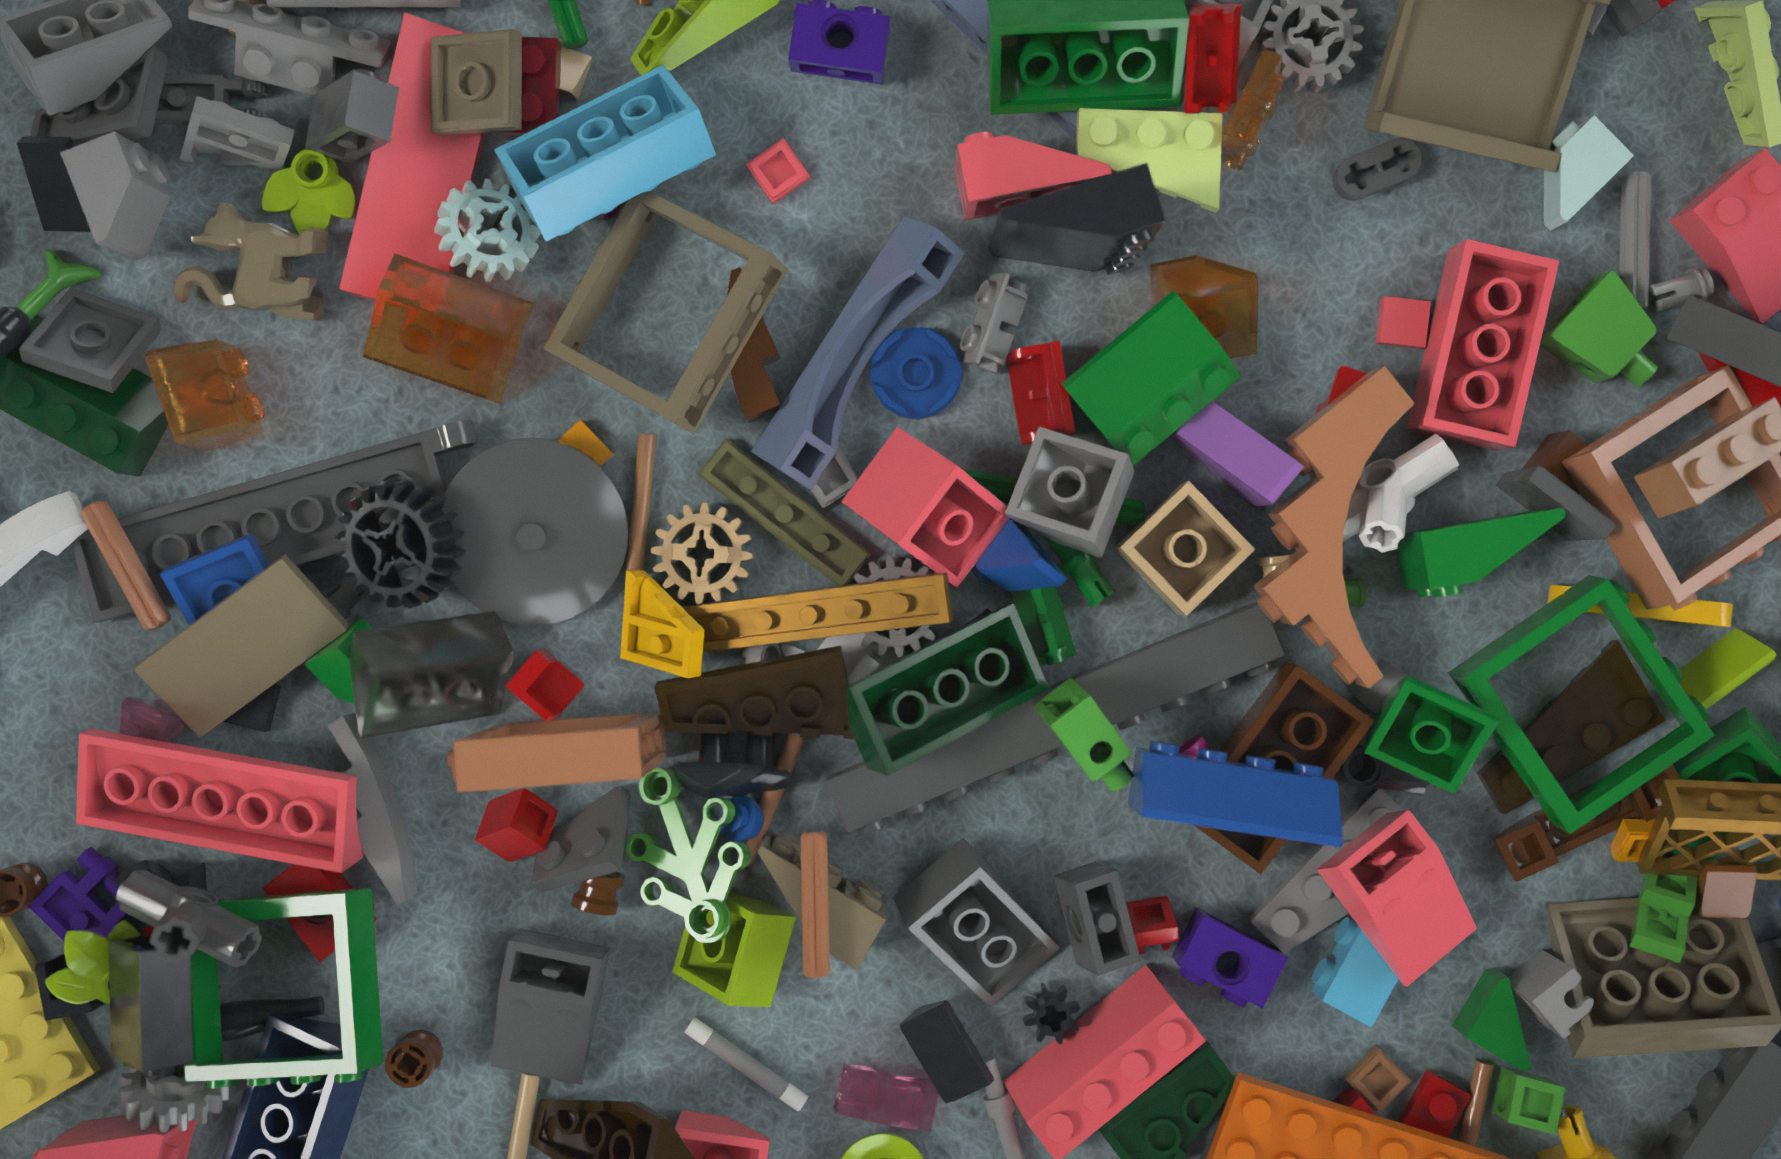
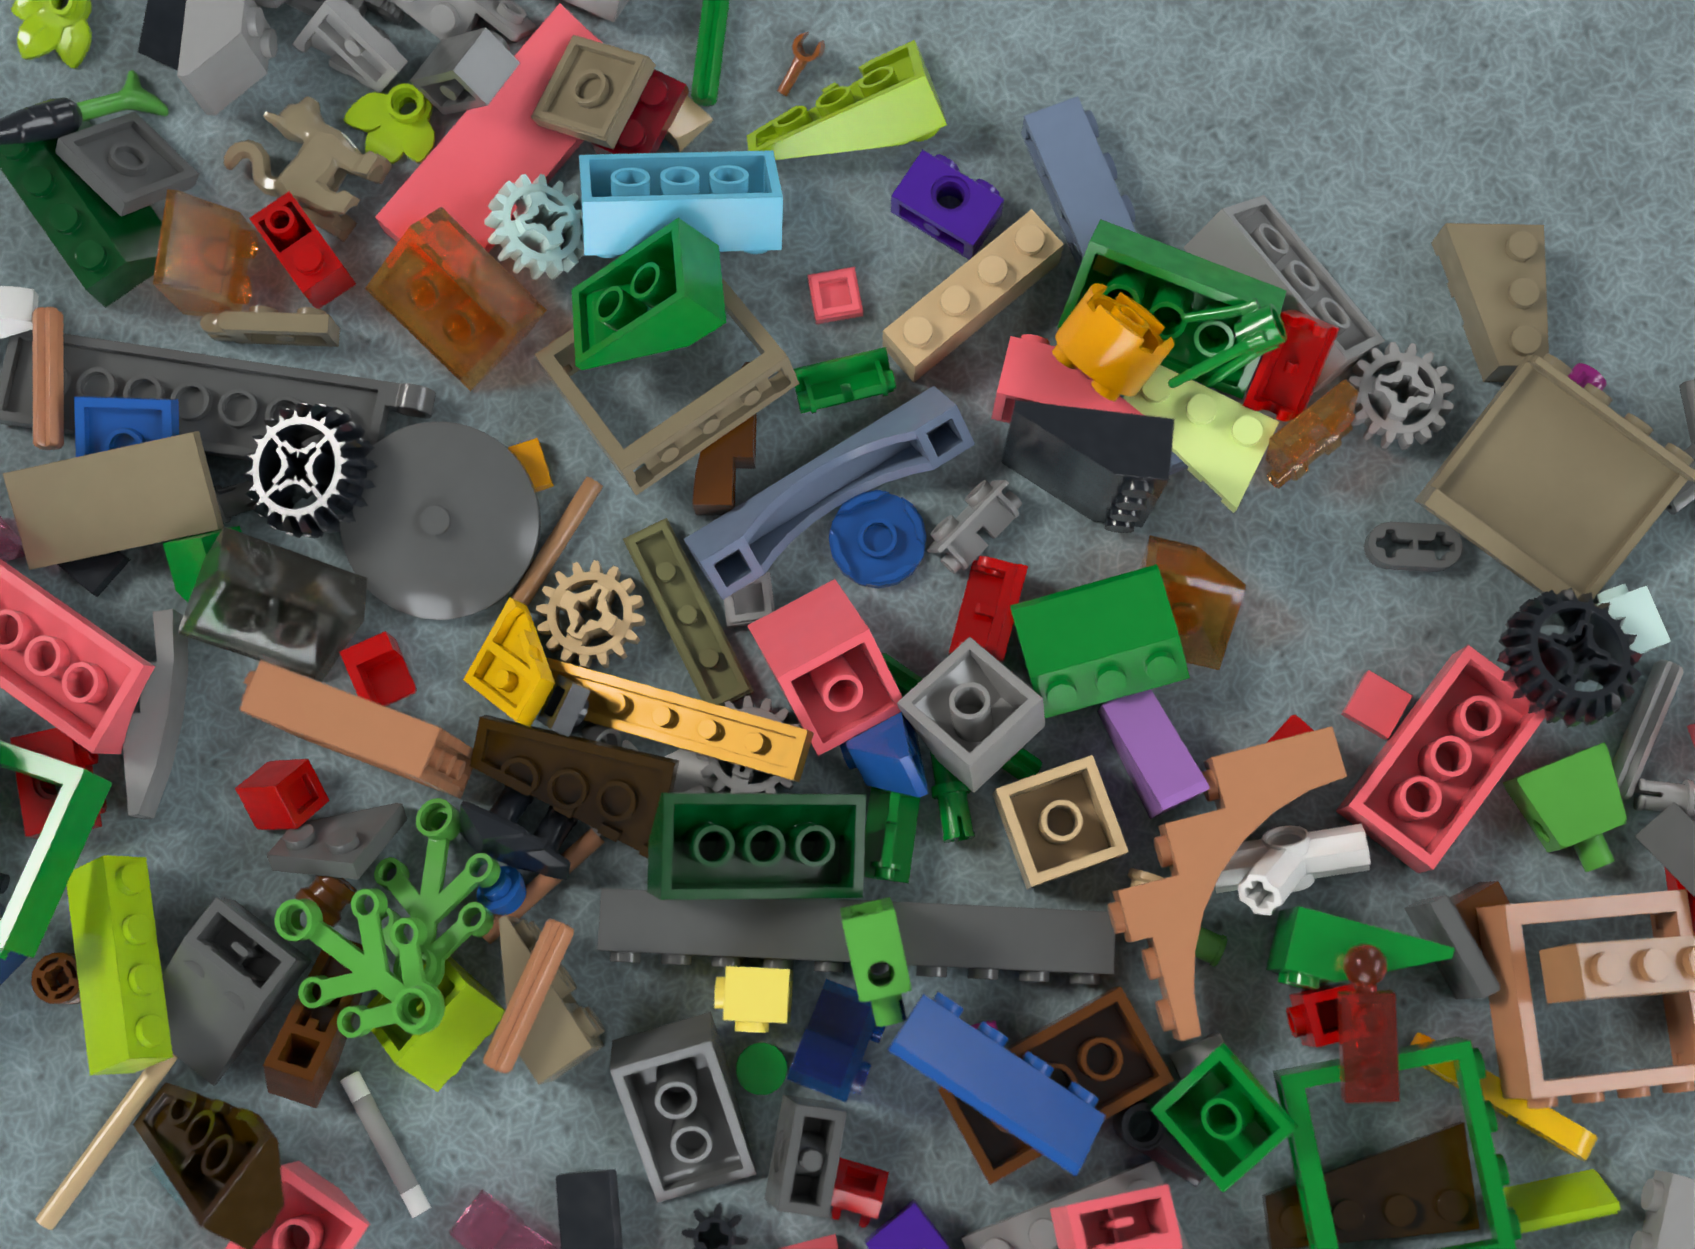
camera: 30 degrees right, 10 degrees down
(289, 347) = (302, 250): none -> red slope
(293, 428) = (268, 326): none -> dark tan hinge
(454, 1030) = (118, 965): none -> lime brick
(623, 255) = (650, 299): none -> green slope
(643, 994) = (309, 1042): none -> reddish brown slope
(665, 937) = (368, 966): none -> bright green plant
(722, 645) = (564, 706): none -> black plate
(822, 245) = (844, 380): none -> green hinge
(901, 116) = (972, 295): none -> tan brick
(997, 812) = (754, 997): none -> light yellow brick
(1025, 861) = (761, 1068): none -> green tile
(1051, 111) = (1112, 342): none -> light orange brick
(1079, 821) = (836, 1043): none -> clear blue brick
(1176, 44) = (1256, 333): none -> green plant
(1475, 610) = (1316, 1014): none -> red brick
(1521, 610) = (1367, 1030): none -> clear red plate
(1548, 228) = (1552, 664): none -> black gear

